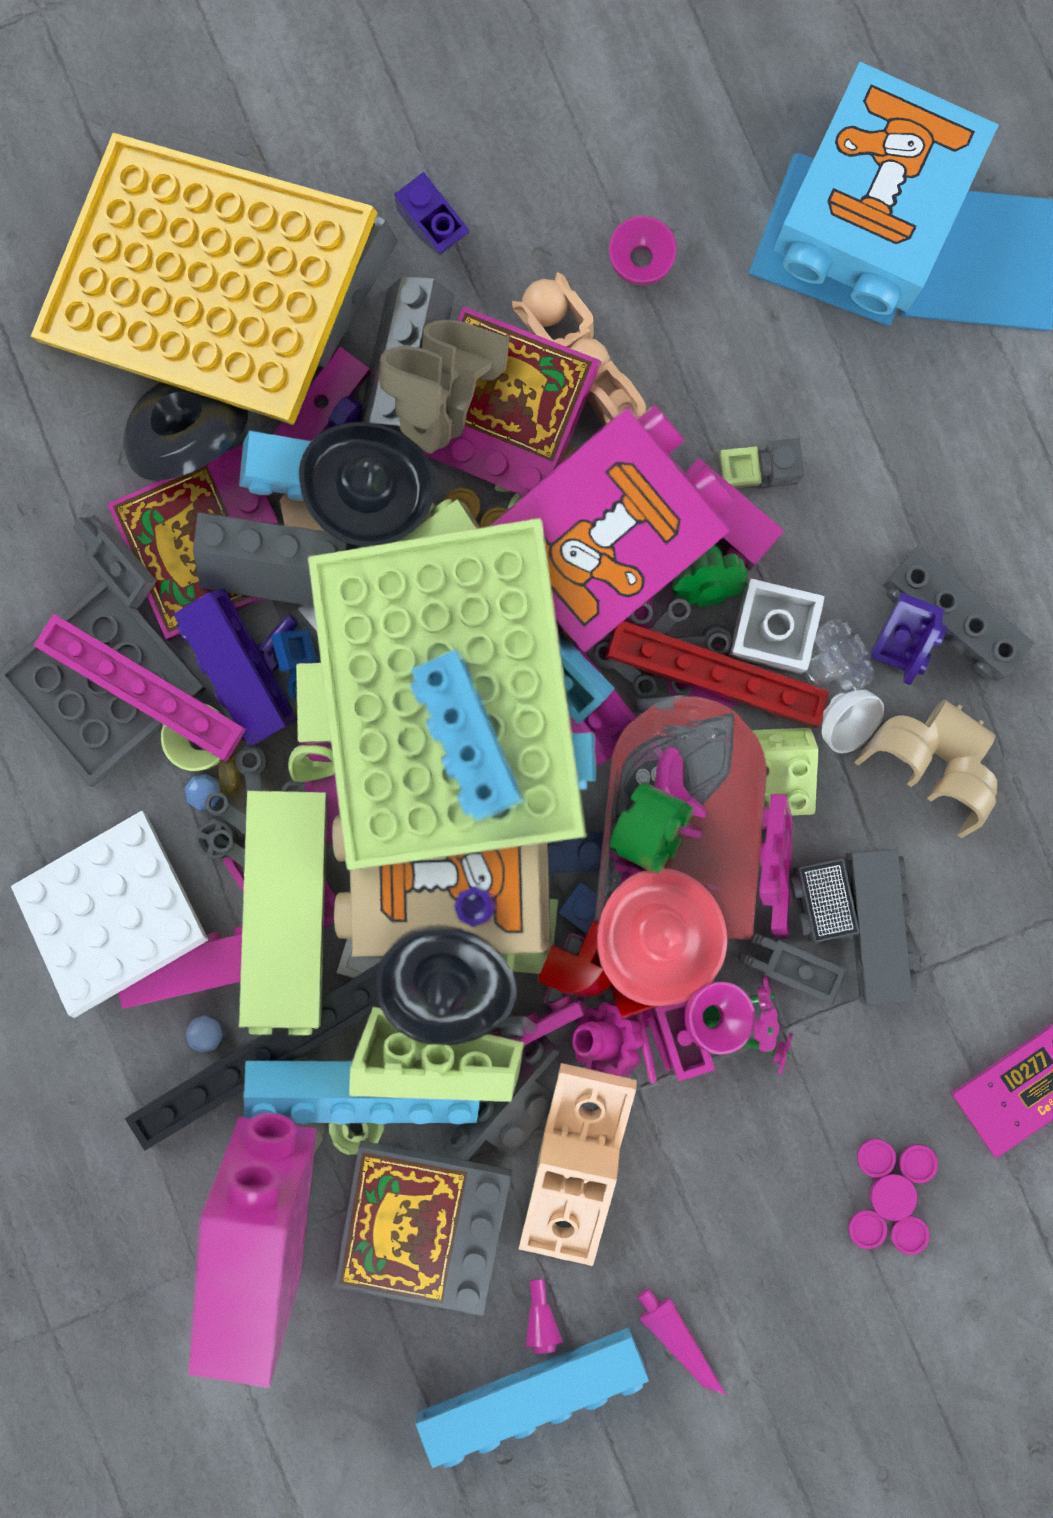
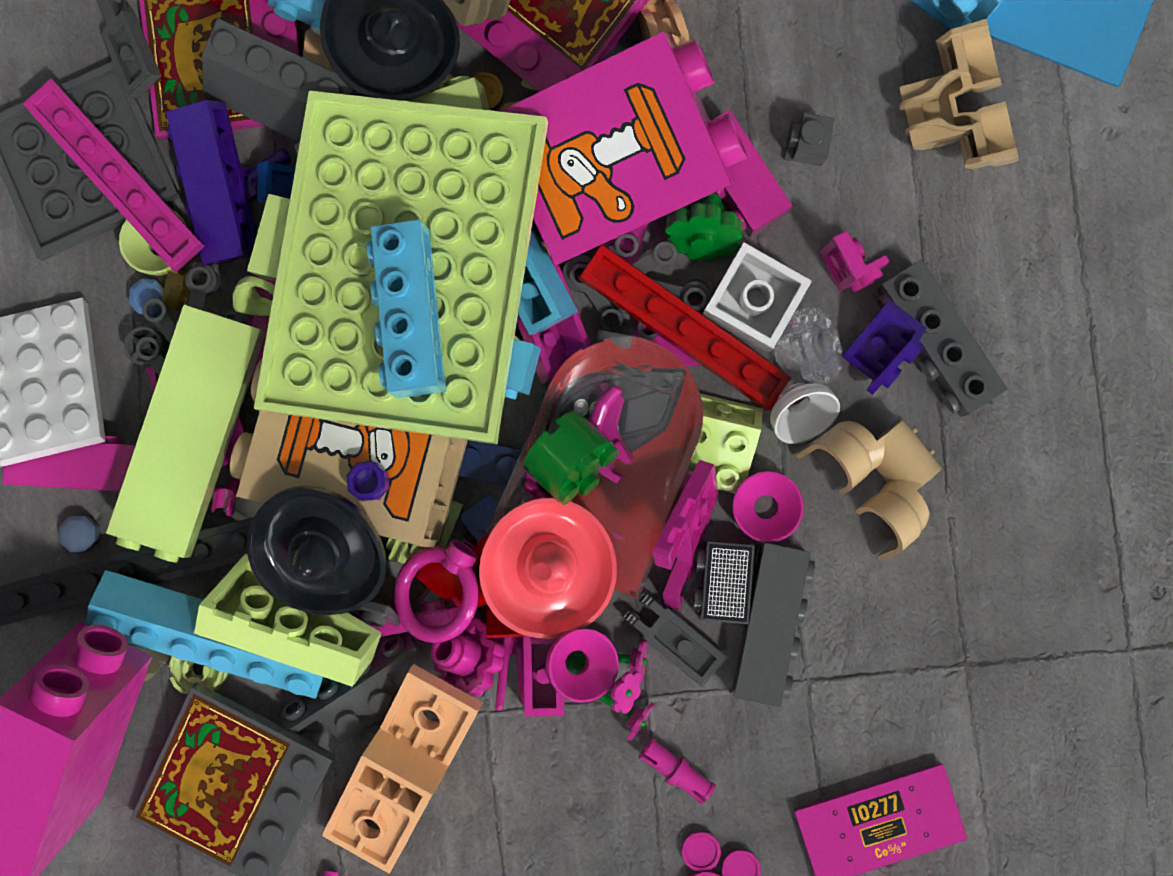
camera: 20 degrees right, 0 degrees up
(335, 958) = (226, 497): none -> dark pink hand
(575, 954) = (457, 559): none -> dark pink piece
(741, 467) = (770, 132): yellowish green tile -> none
(832, 1090) = (677, 771): none -> dark pink pin
(850, 569) = (846, 266): none -> dark pink bracket
(863, 815) = (788, 502): none -> dark pink piece
(887, 401) = (933, 110): none -> tan piece

